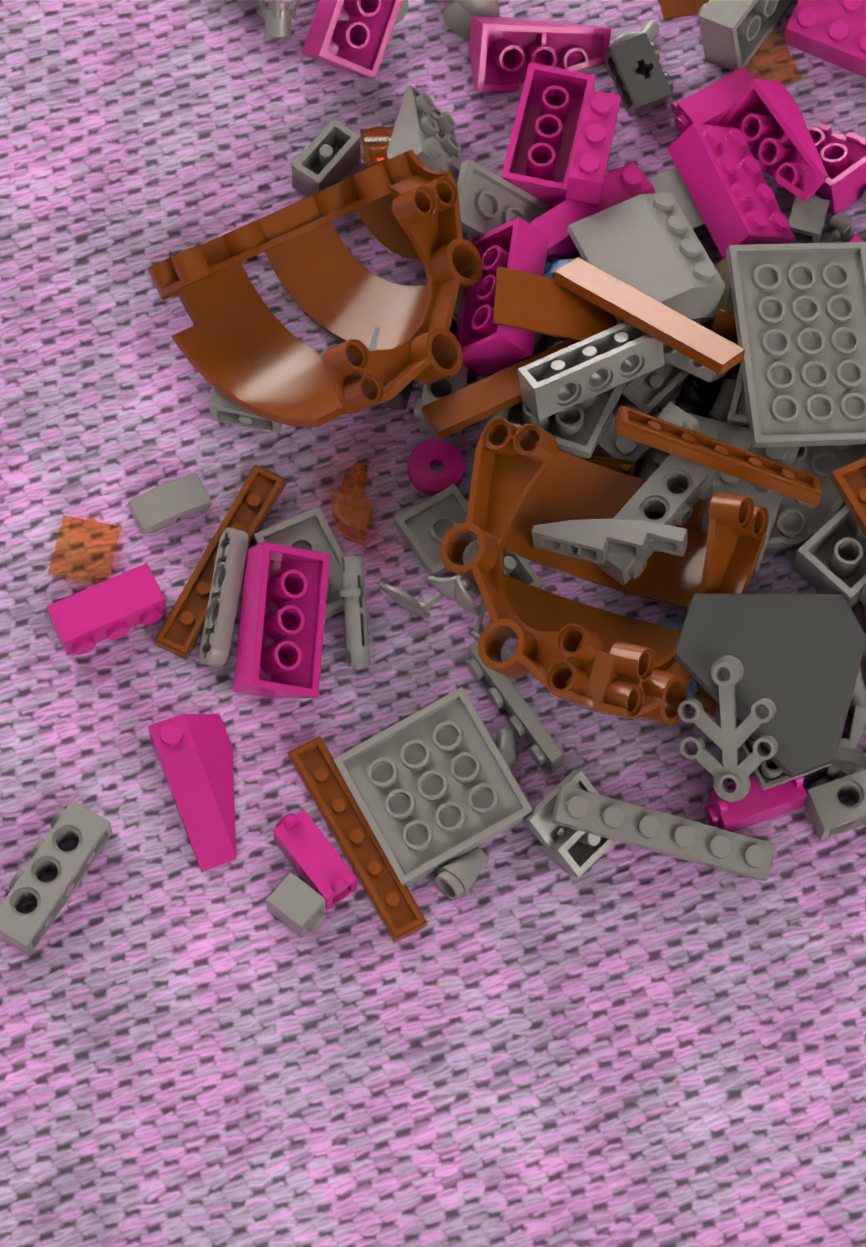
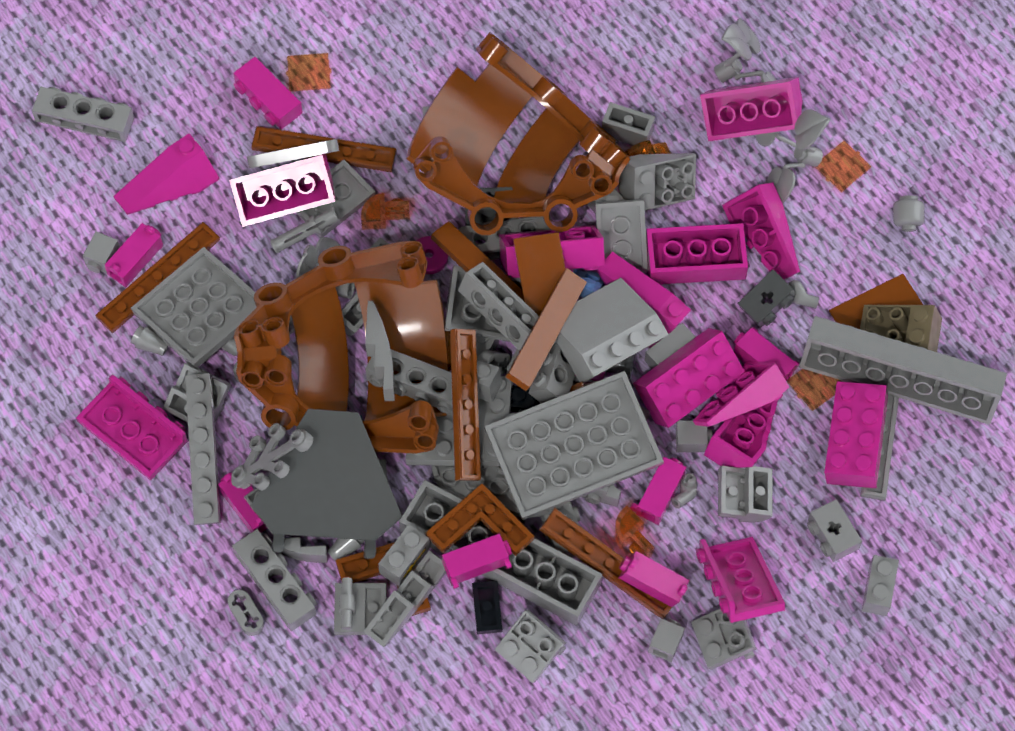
camera: 75 degrees right, 0 degrees up
(170, 501) = (353, 107): light grey slope -> none
(593, 147) = (682, 274): dark pink brick -> none
(593, 927) = (133, 427): none -> dark pink bracket
(841, 225) = (699, 463): light grey hand -> none

